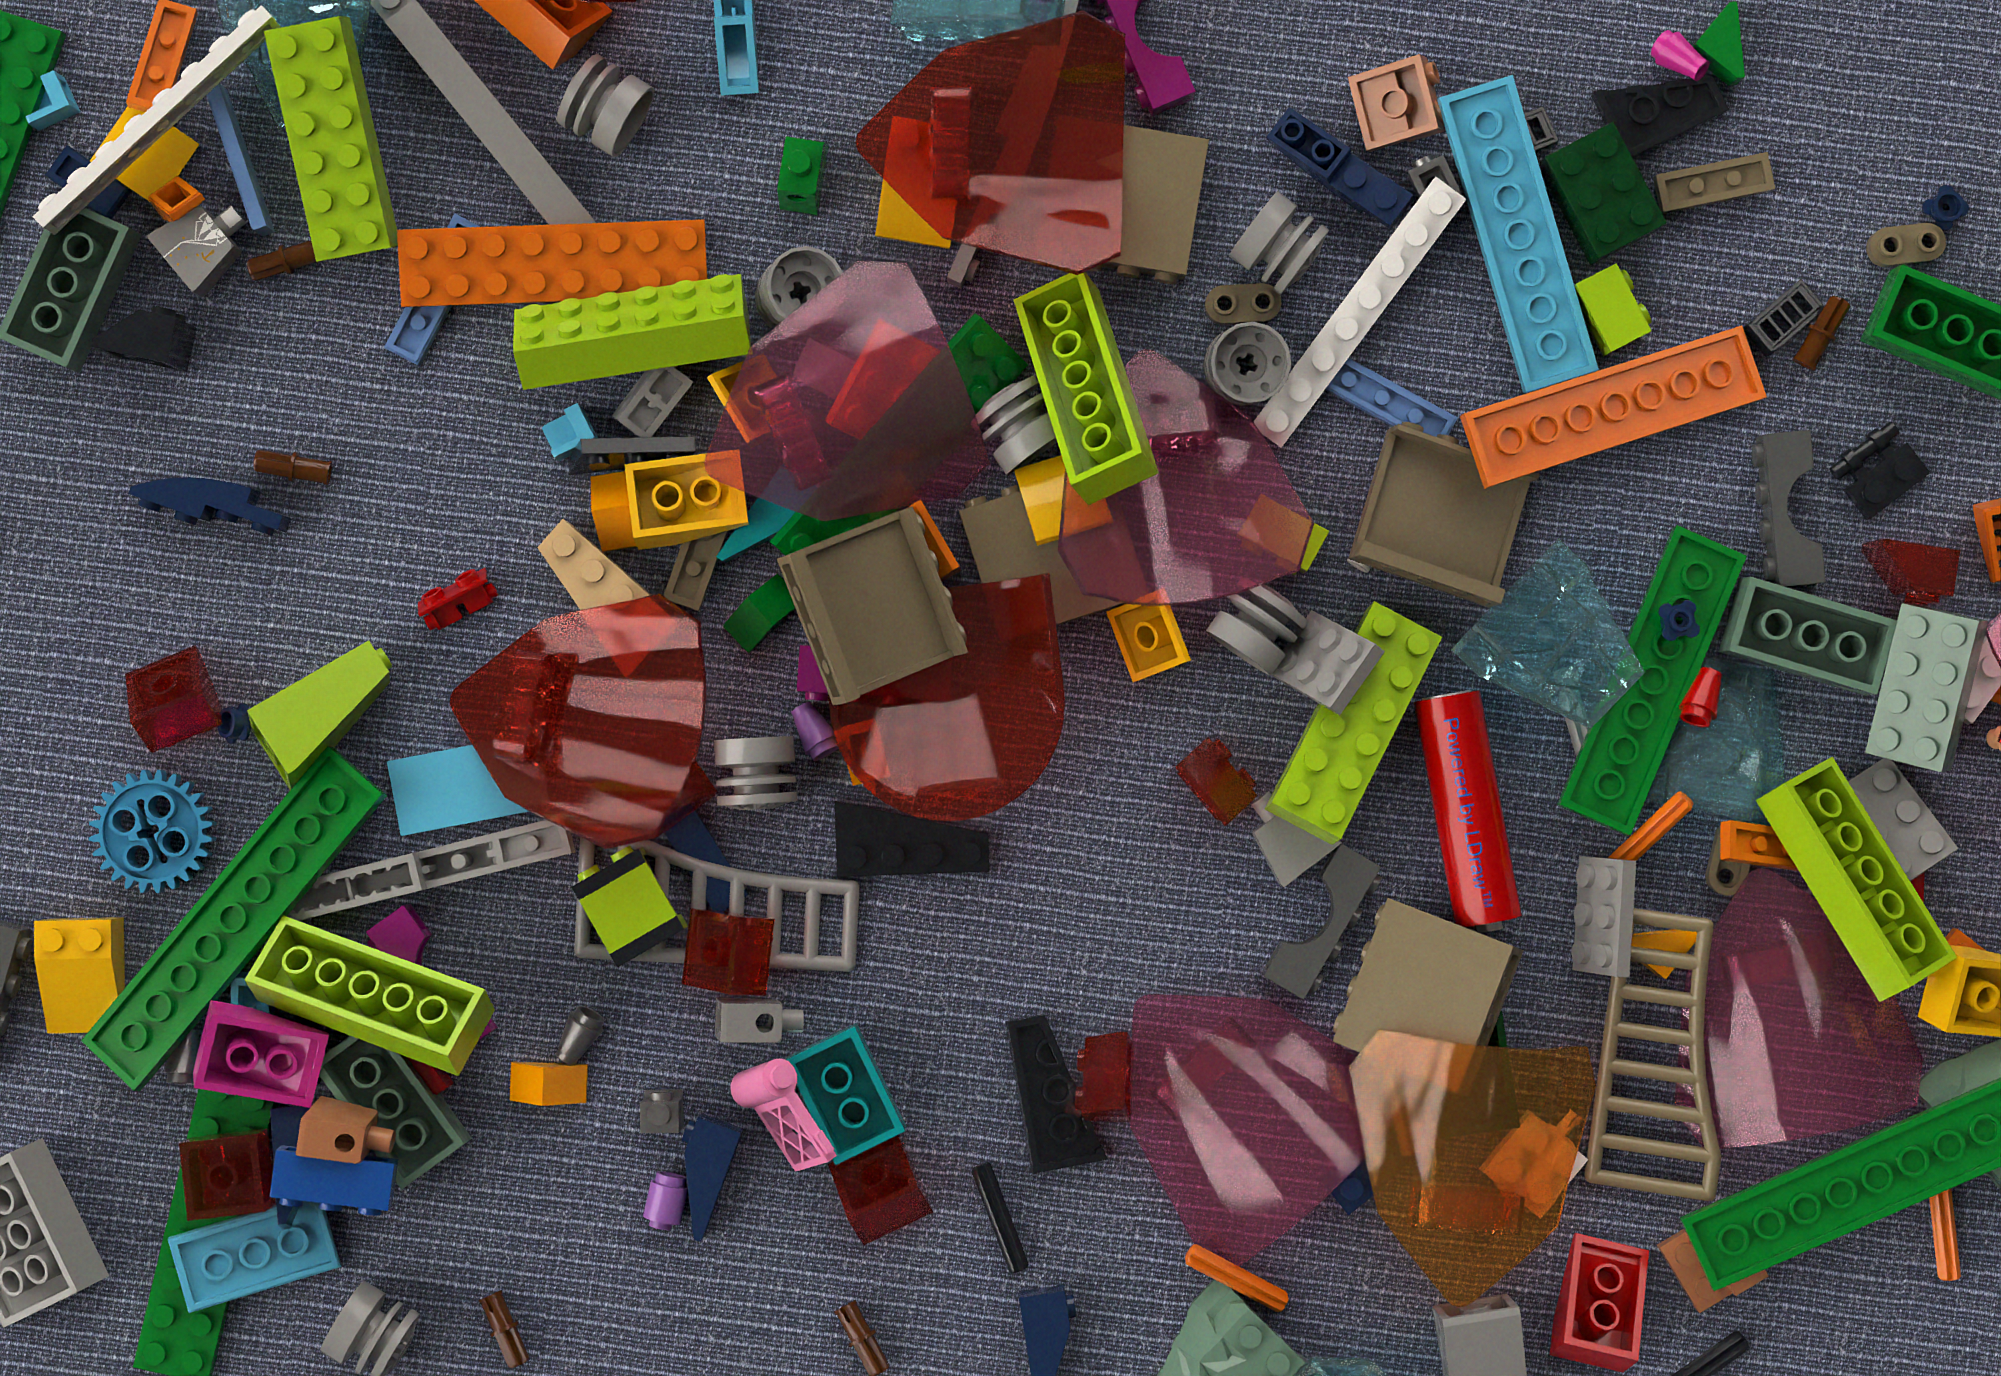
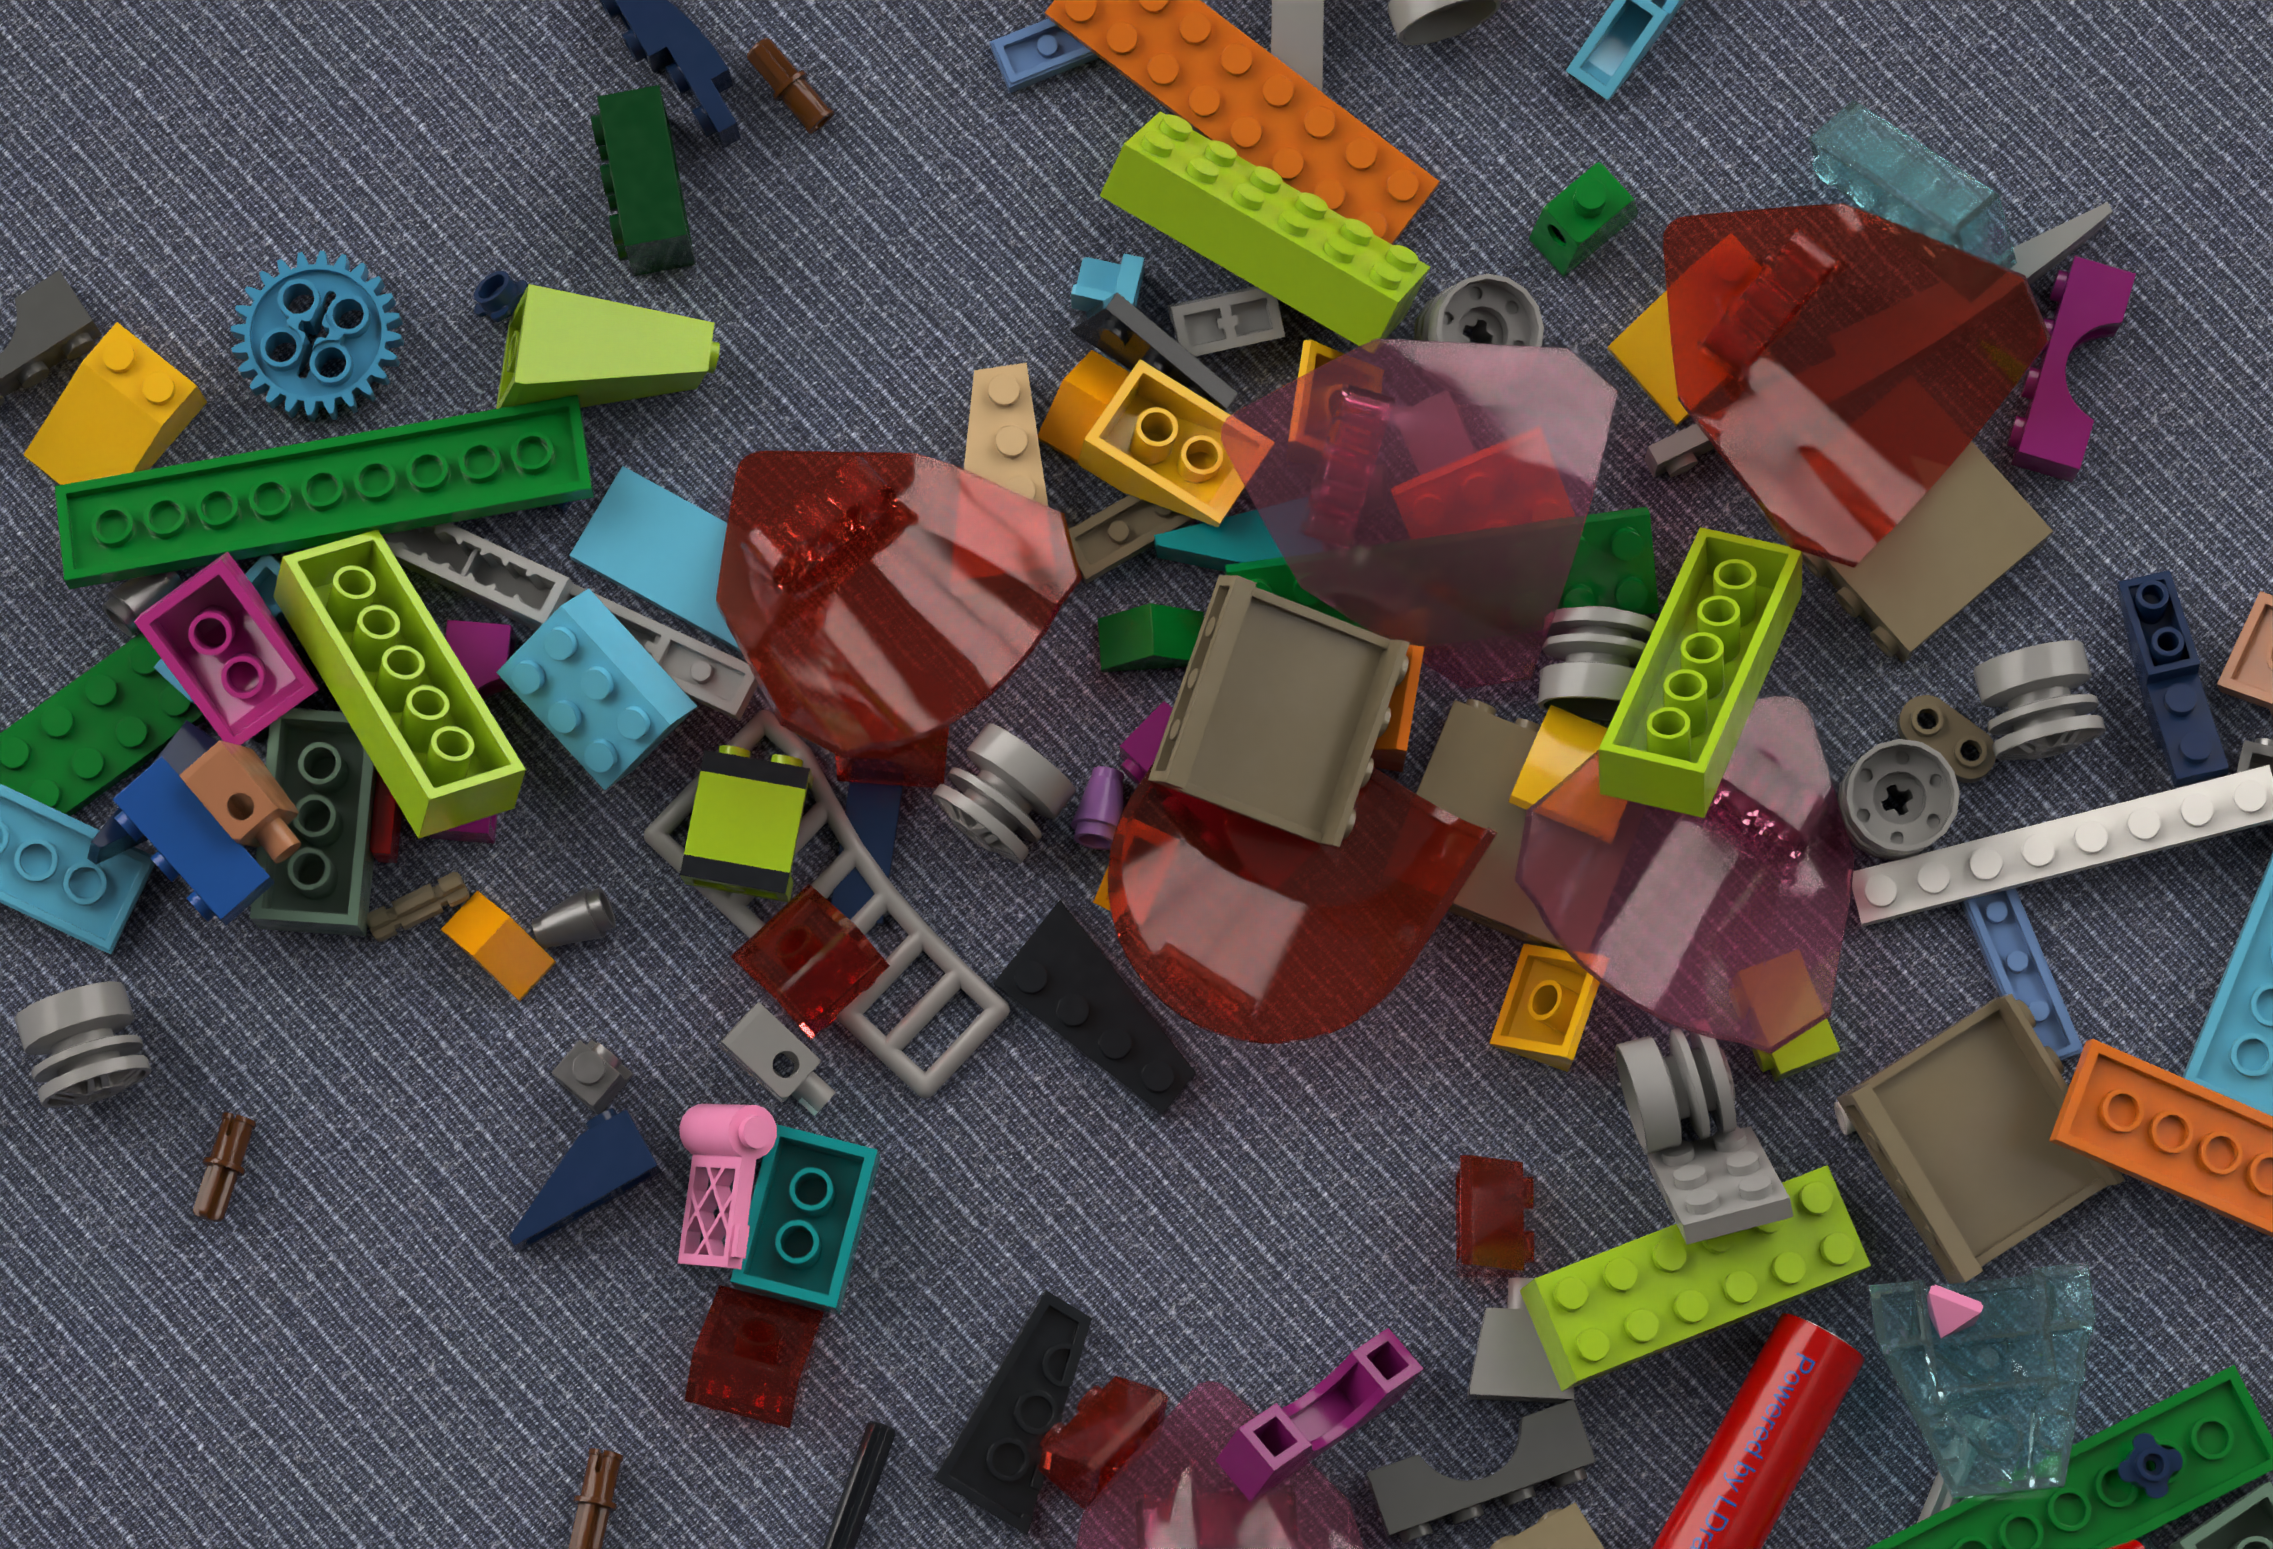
camera: 35 degrees right, 10 degrees down
(172, 699) = (456, 219): clear red slope -> none
(226, 1174) = (83, 747): clear red brick -> none
(258, 592) = (642, 181): none -> dark green brick
(442, 603) = (862, 360): red hinge -> none
(481, 902) = (596, 688): none -> medium azure brick
(486, 1099) = (417, 906): none -> dark tan axle
(665, 1200) = (513, 1174): medium lavender brick -> none
(1214, 970) = (1292, 1436): none -> magenta arch
(1505, 626) = (1951, 1311): none -> bright pink slope

